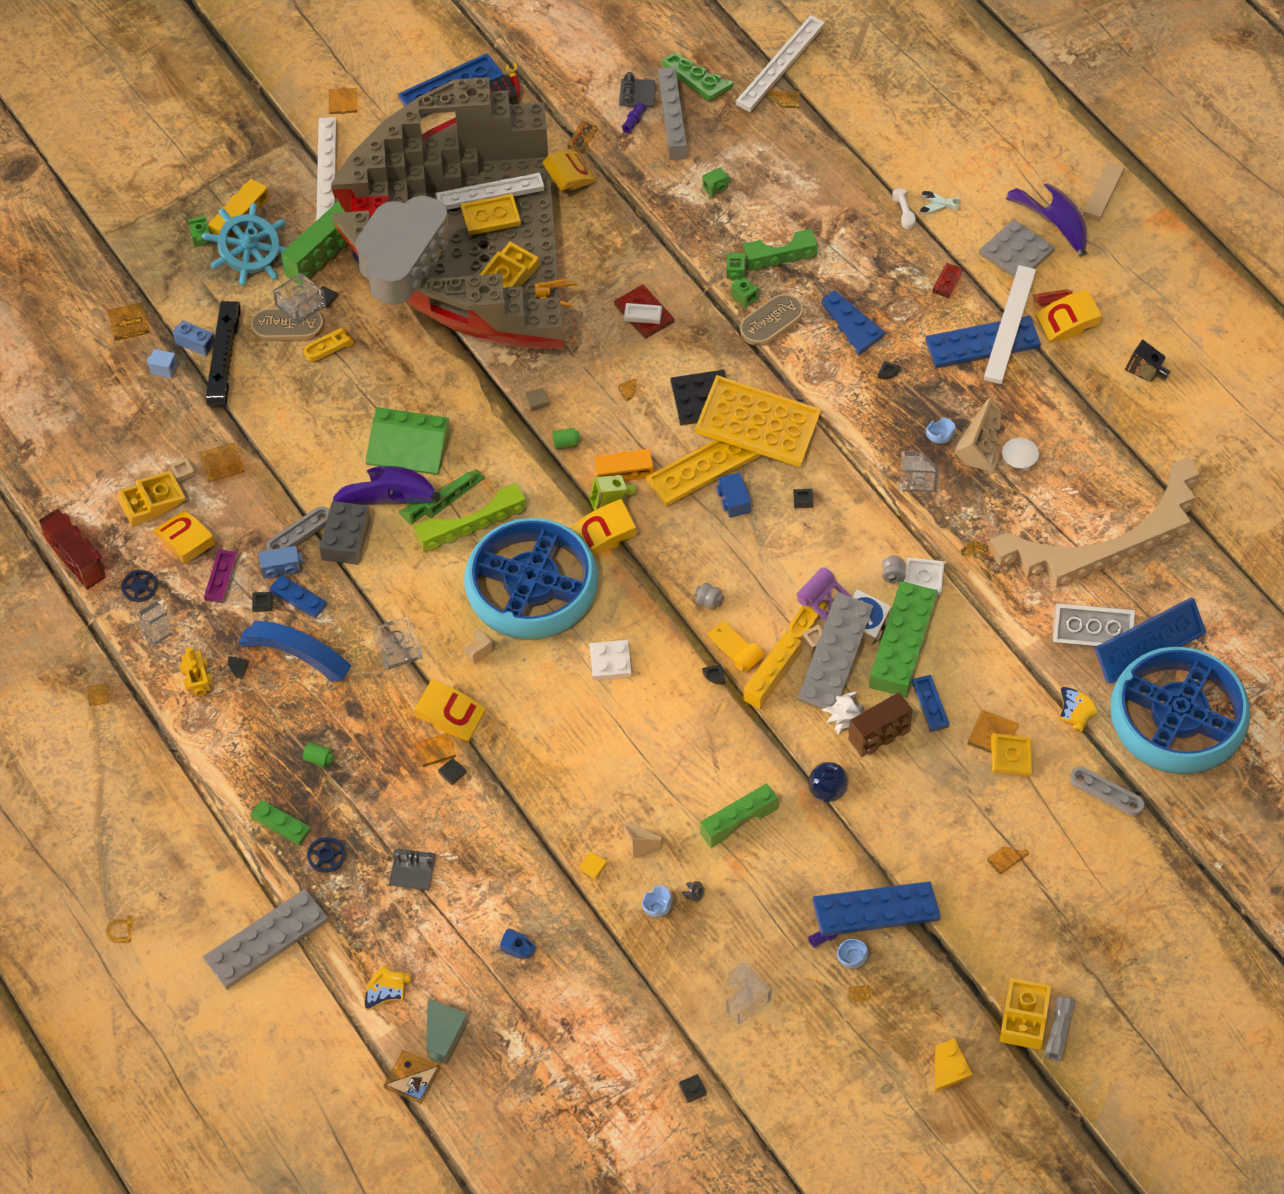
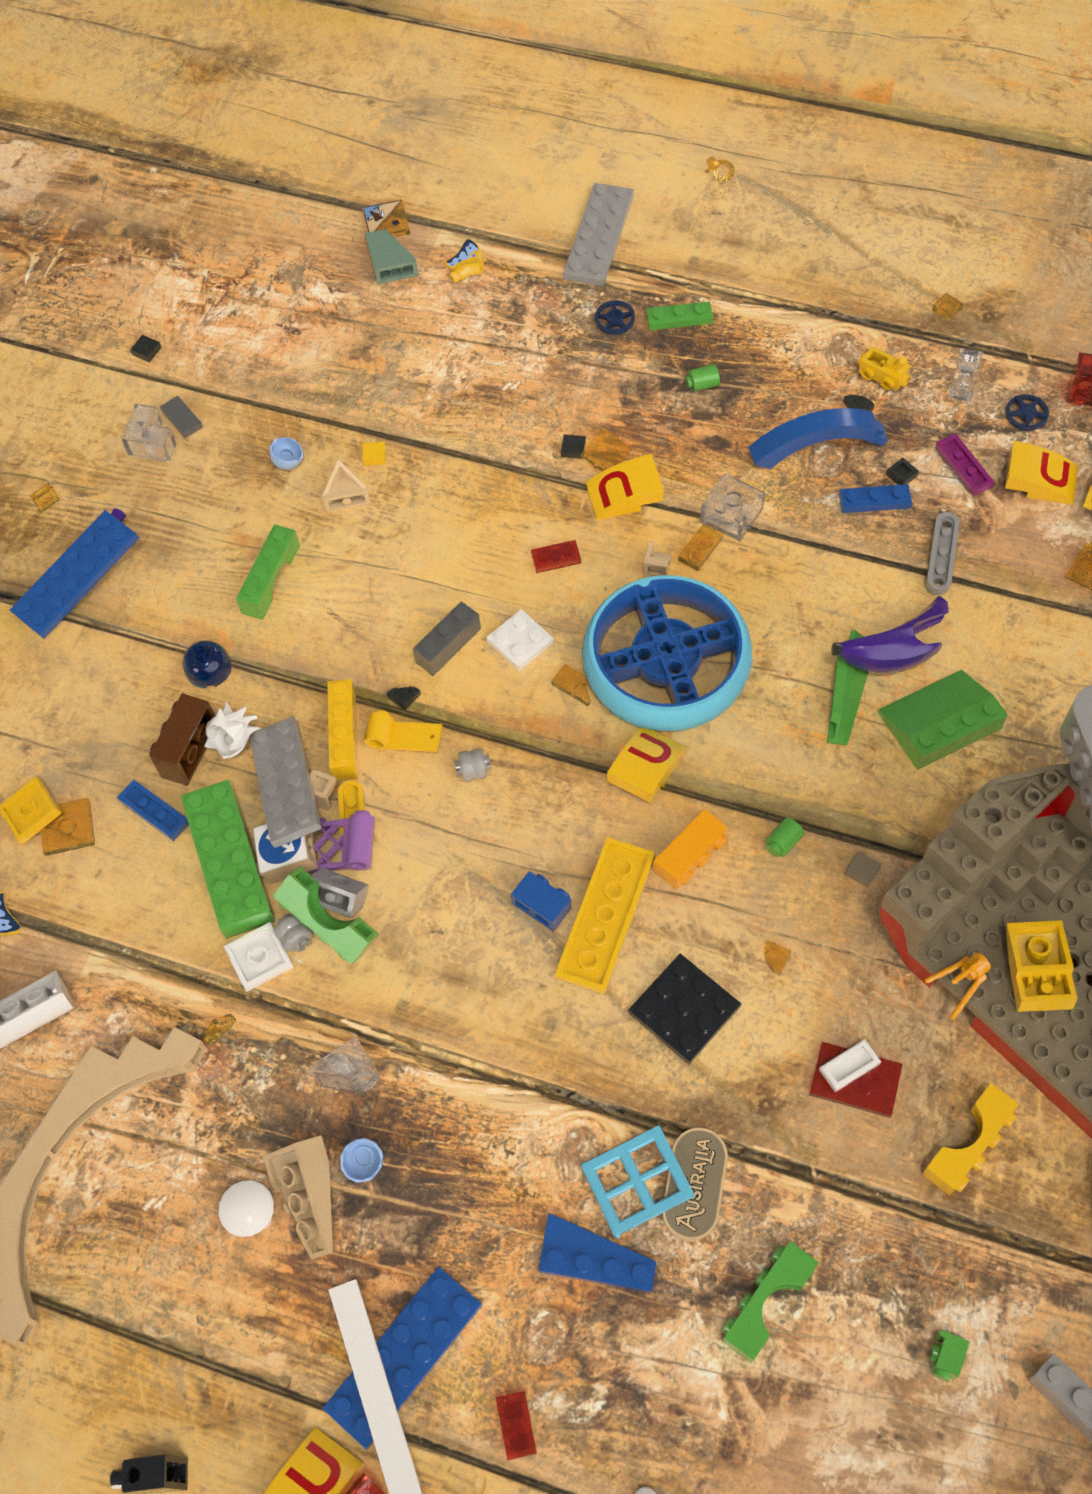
camera: 145 degrees right, 5 degrees up
(280, 561) = (923, 513): medium blue brick -> none
(345, 532) = (896, 577): dark grey brick -> none
(412, 869) = (530, 351): dark grey hinge -> none
(437, 532) = (811, 641): lime arch -> none
(440, 638) = (700, 547): none -> clear yellow plate
(517, 944) = (383, 353): blue rock -> none
(537, 700) = (555, 556): none -> clear red plate
(602, 610) = (572, 683): none -> clear yellow tile
(609, 489) = (679, 795): lime torso -> none
(634, 244) = (950, 1165): none -> yellow arch
(658, 685) = (447, 638): none -> dark grey brick
(695, 891) = (260, 486): dark grey plate -> none
(709, 1000) = (181, 416): none -> dark grey tile
(735, 270) = (813, 1228): bright green brick -> none
(744, 292) = (751, 1203): bright green brick -> none
(758, 421) = (586, 1008): yellow plate -> none
(800, 337) = (637, 1181): none -> medium azure window
(803, 498) = (465, 959): pearl dark grey tile -> none
(847, 563) = (340, 892): none -> light grey brick
(852, 953) = (70, 521): light blue hair -> none
(864, 541) = (301, 898): none -> arch
(888, 370) = (493, 1216): pearl dark grey tile -> none

